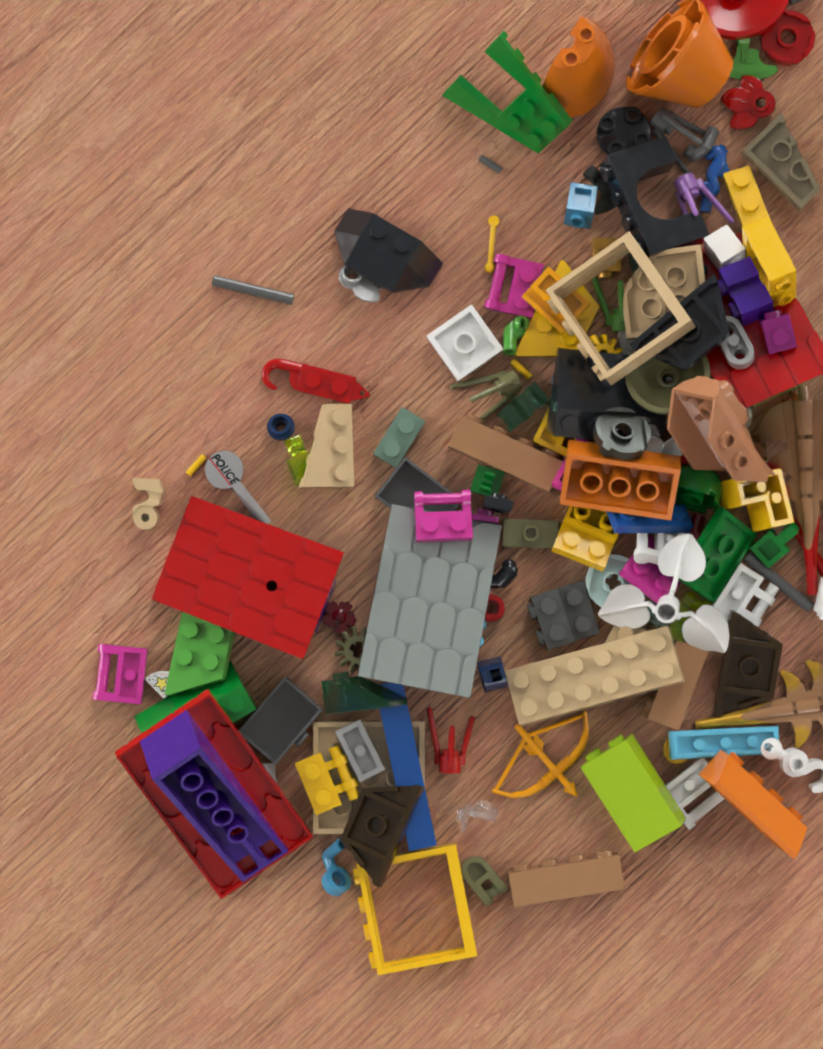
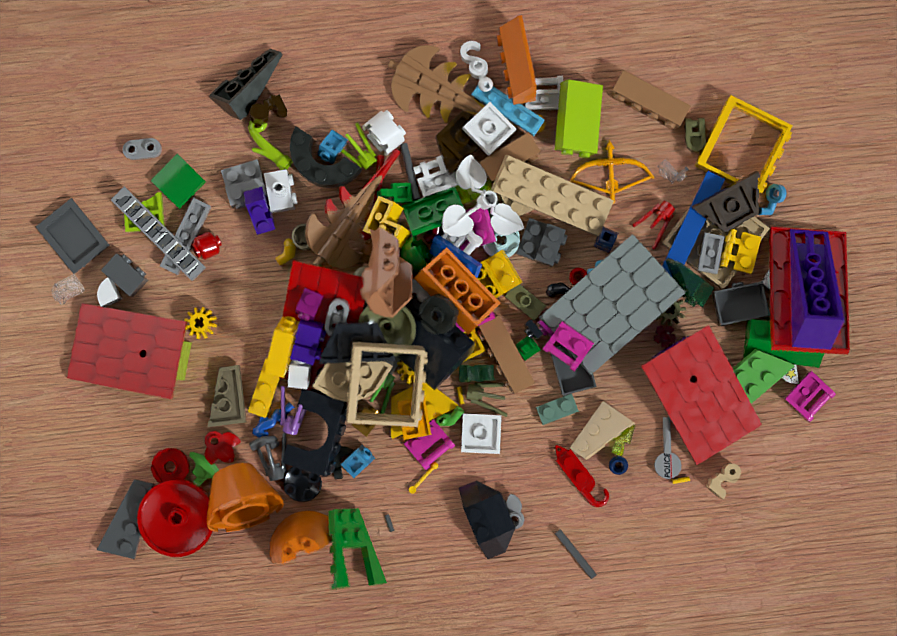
camera: 140 degrees left, 0 degrees up
(726, 699) = (489, 128): none -> white plate

